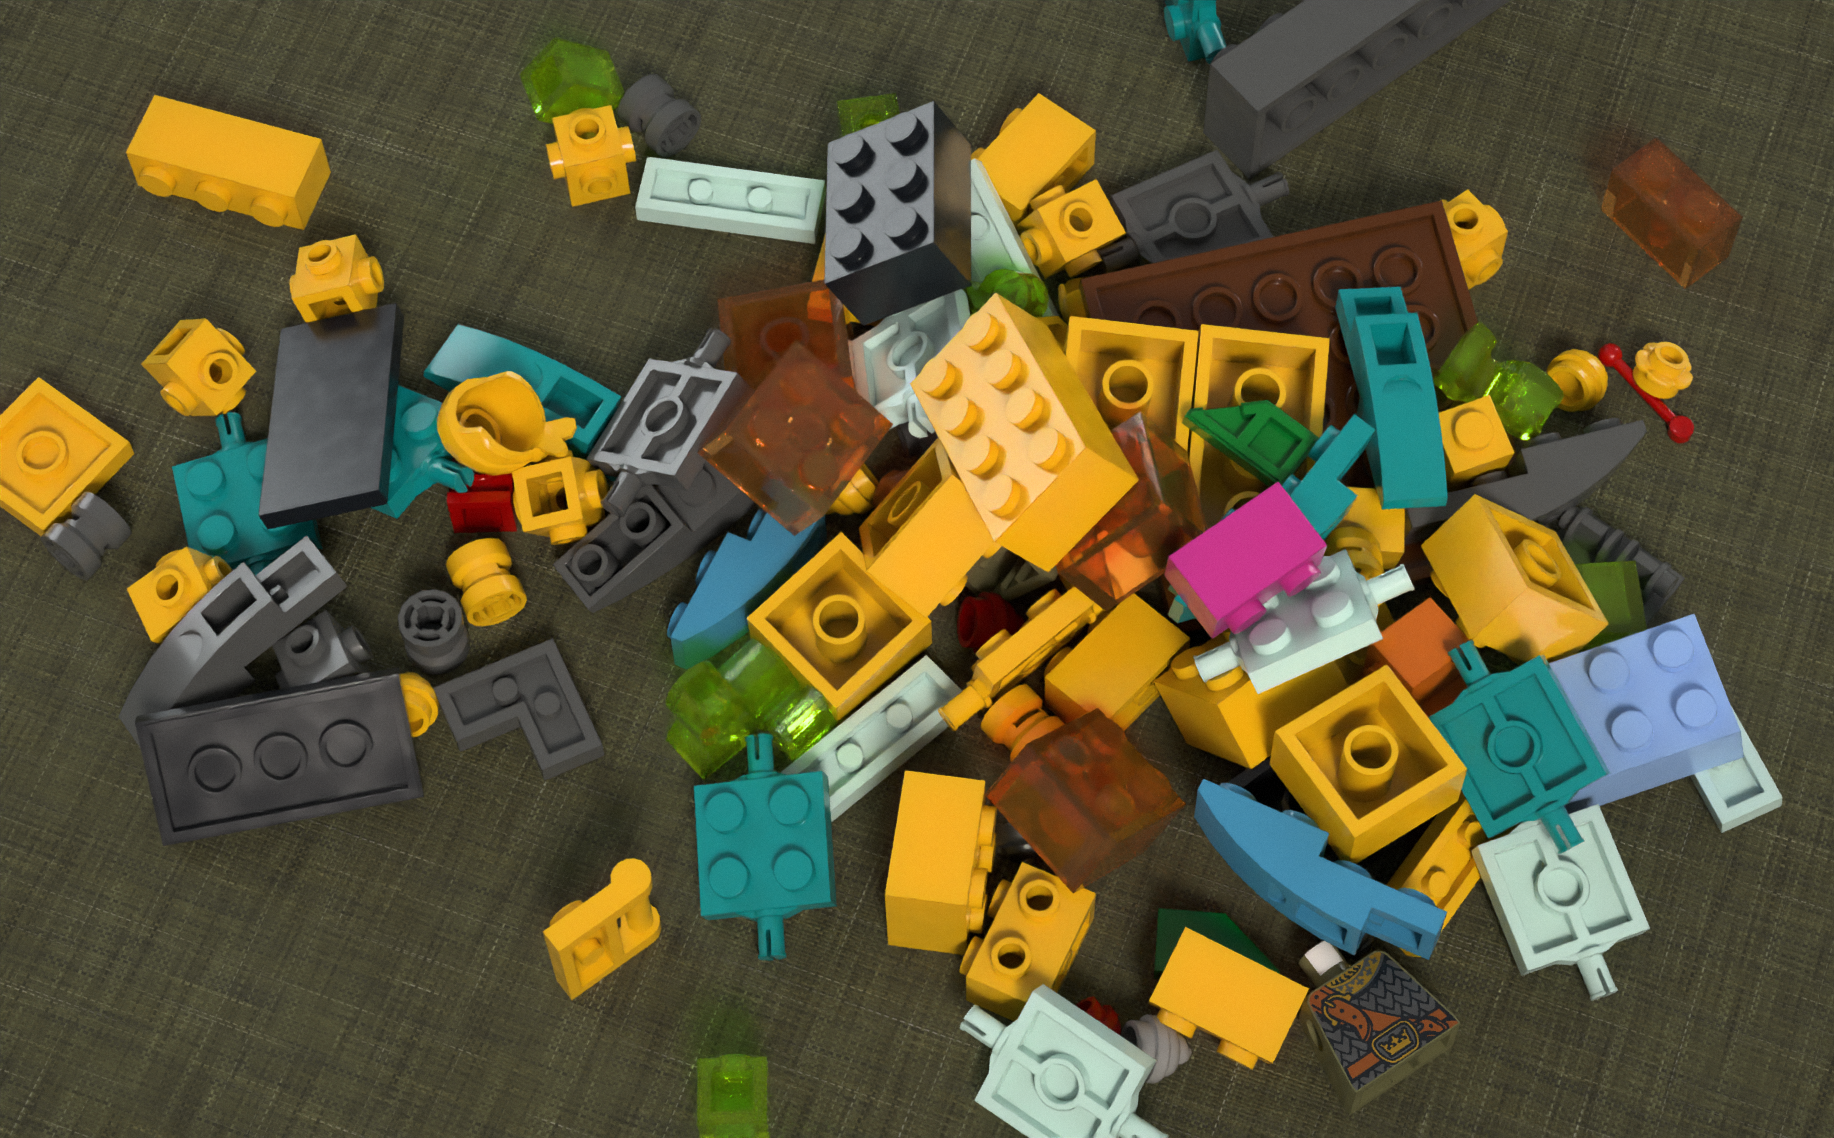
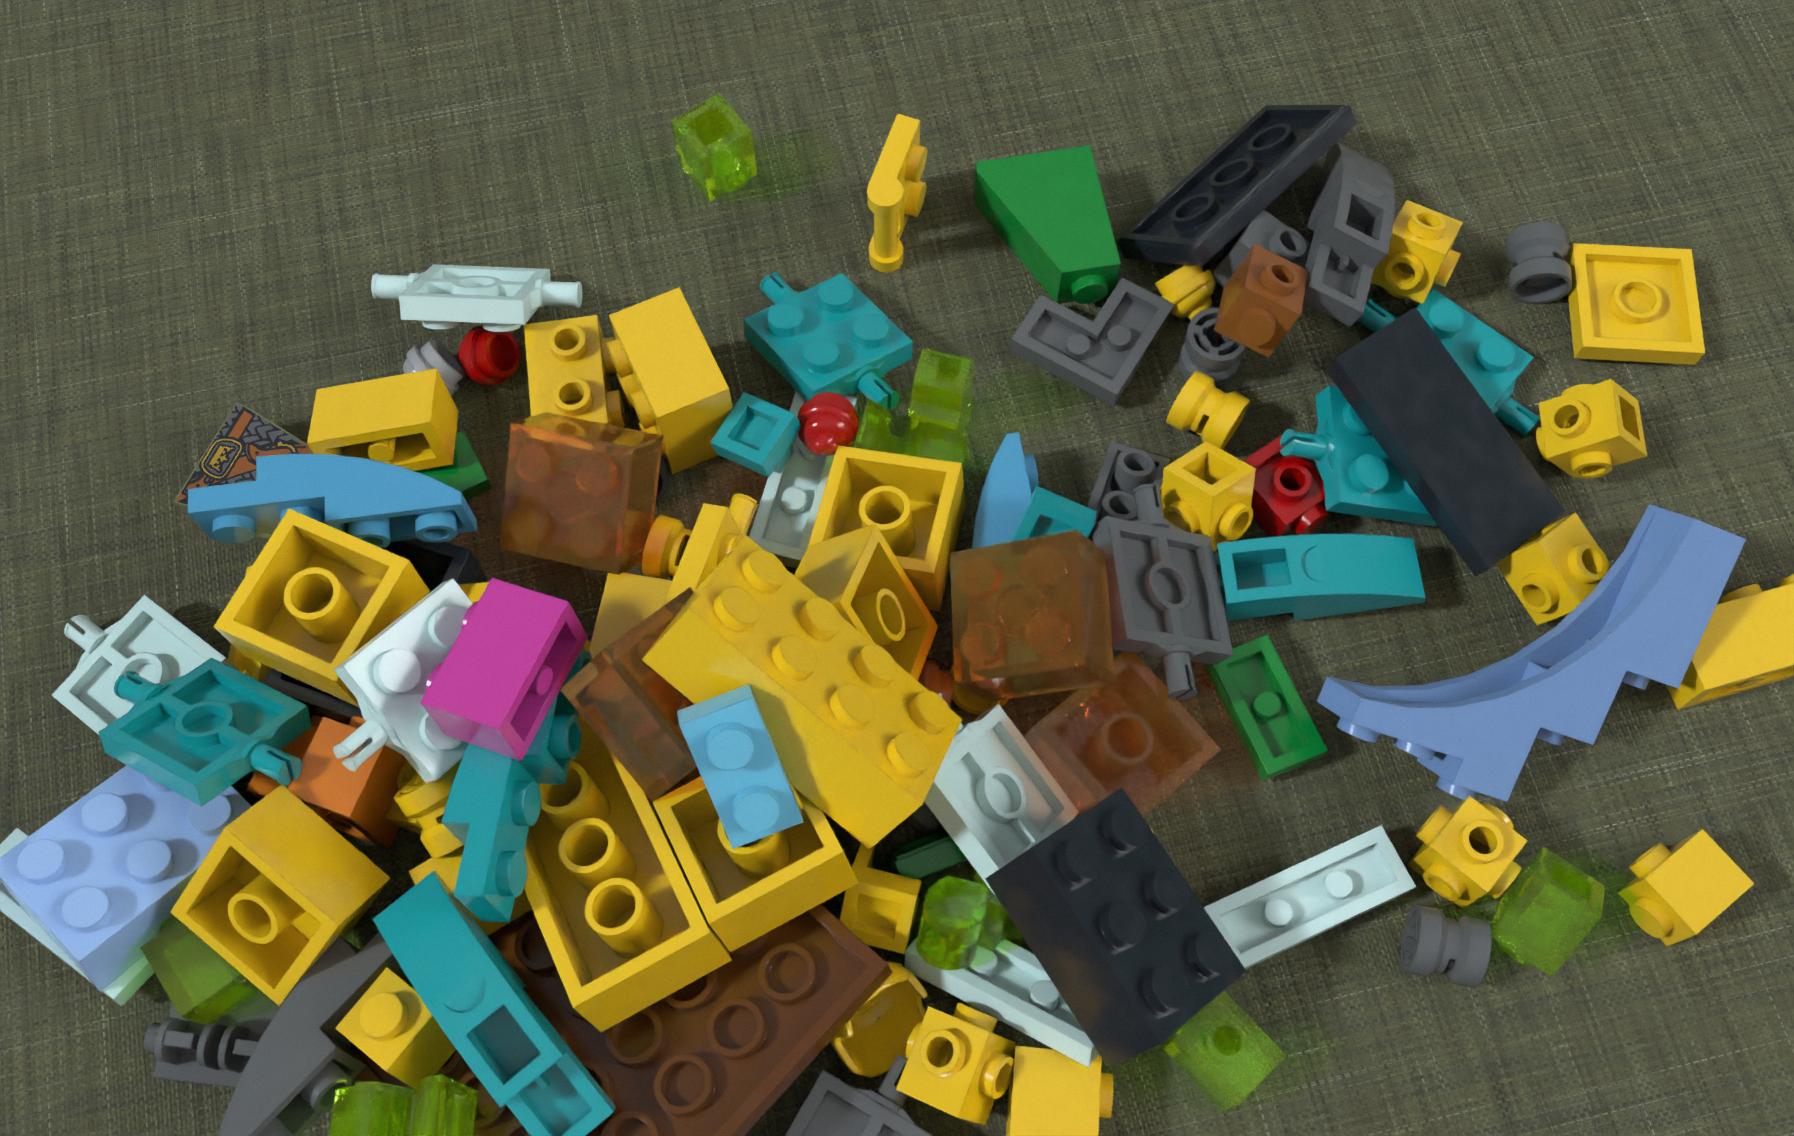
camera: 145 degrees right, 5 degrees up
(379, 600) = (1261, 300): none -> dark orange brick
(425, 198) = (1629, 630): none -> medium blue arch
(460, 53) = (1682, 887): none -> yellow brick
(465, 839) = (1053, 220): none -> green slope
(500, 425) = (1294, 485): yellow hat -> none
(644, 330) = (1266, 709): none -> green plate
(717, 518) = (1052, 514): none -> teal tile
(833, 733) = (827, 422): none -> red plate
(897, 748) = (757, 435): none -> teal tile
(1111, 381) = (740, 766): none -> medium azure plate
(1255, 438) = (589, 850): green tile -> none

